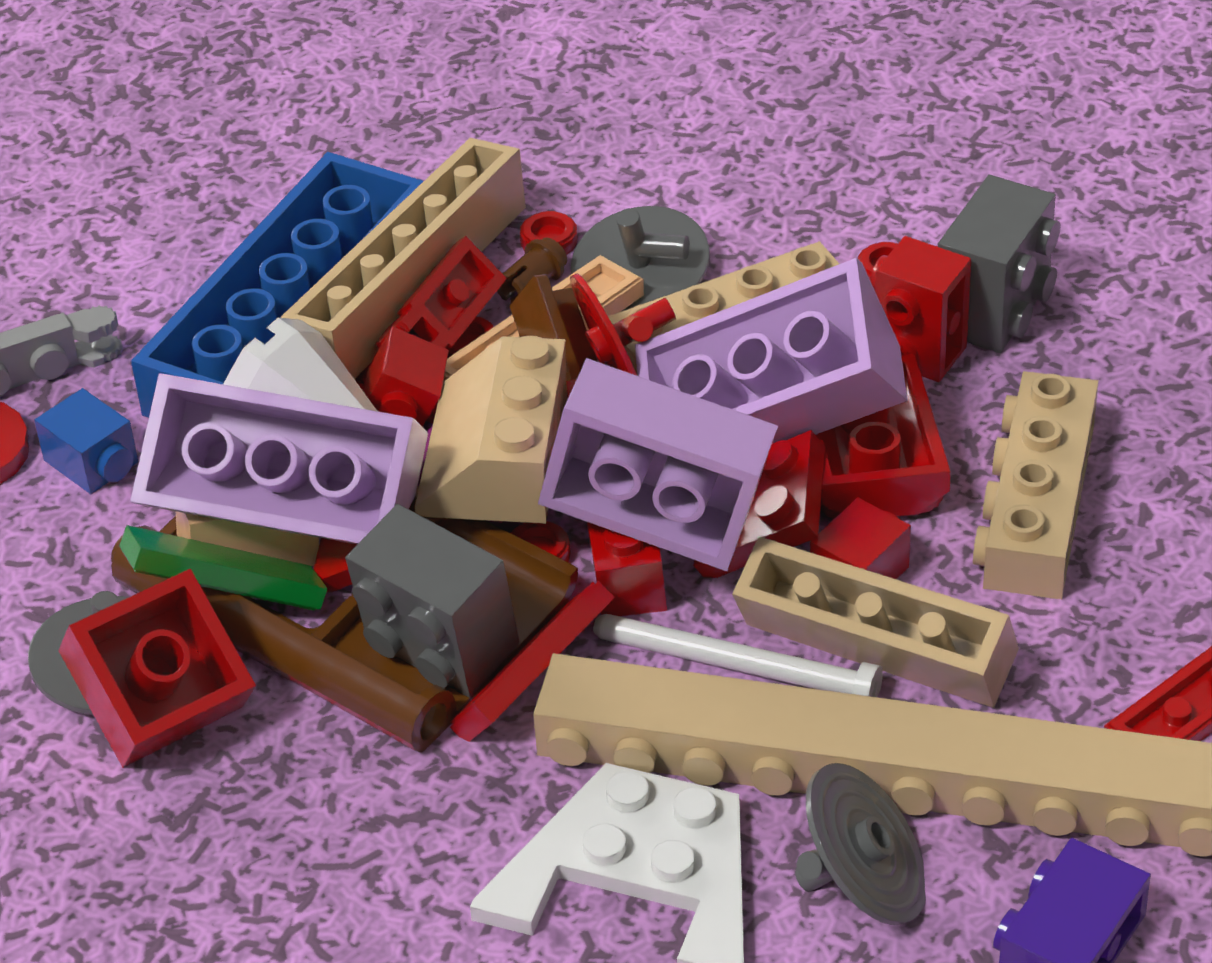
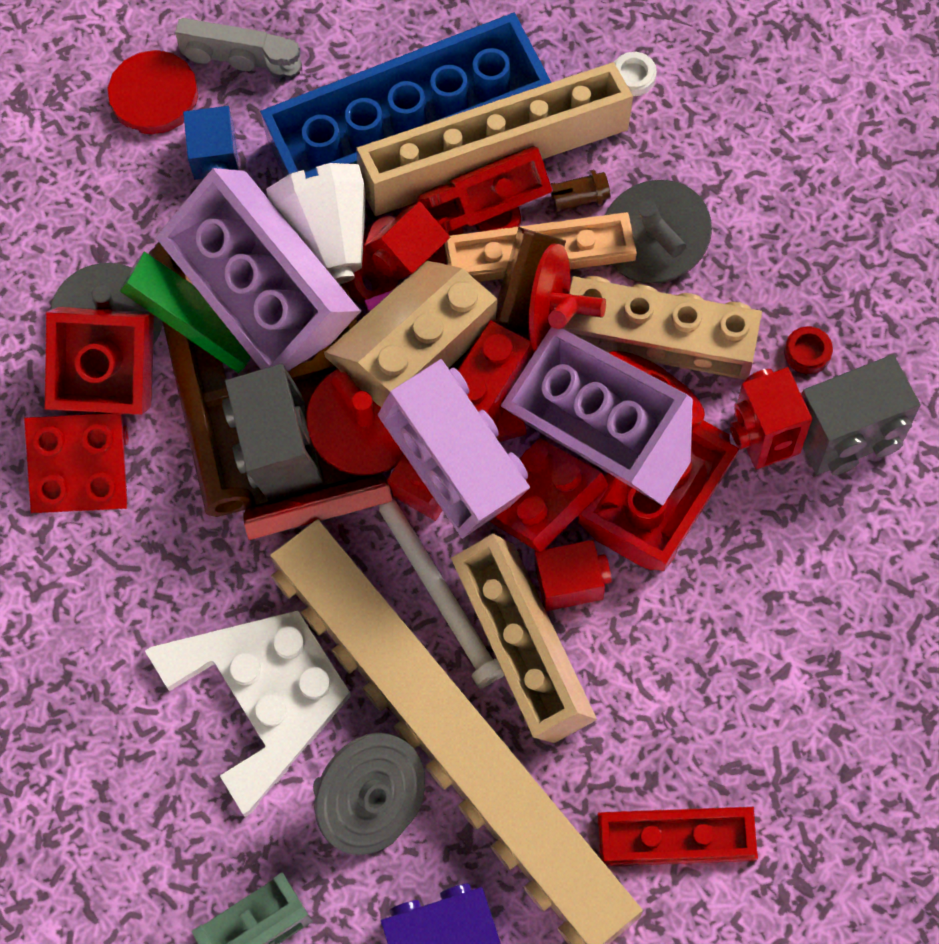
camera: 40 degrees right, 25 degrees up
(209, 792) = (76, 462): none -> red hinge
(537, 557) = (347, 428): none -> red shield
(550, 225) = (622, 164): red tile -> none
(1039, 485) = (728, 605): tan brick -> none

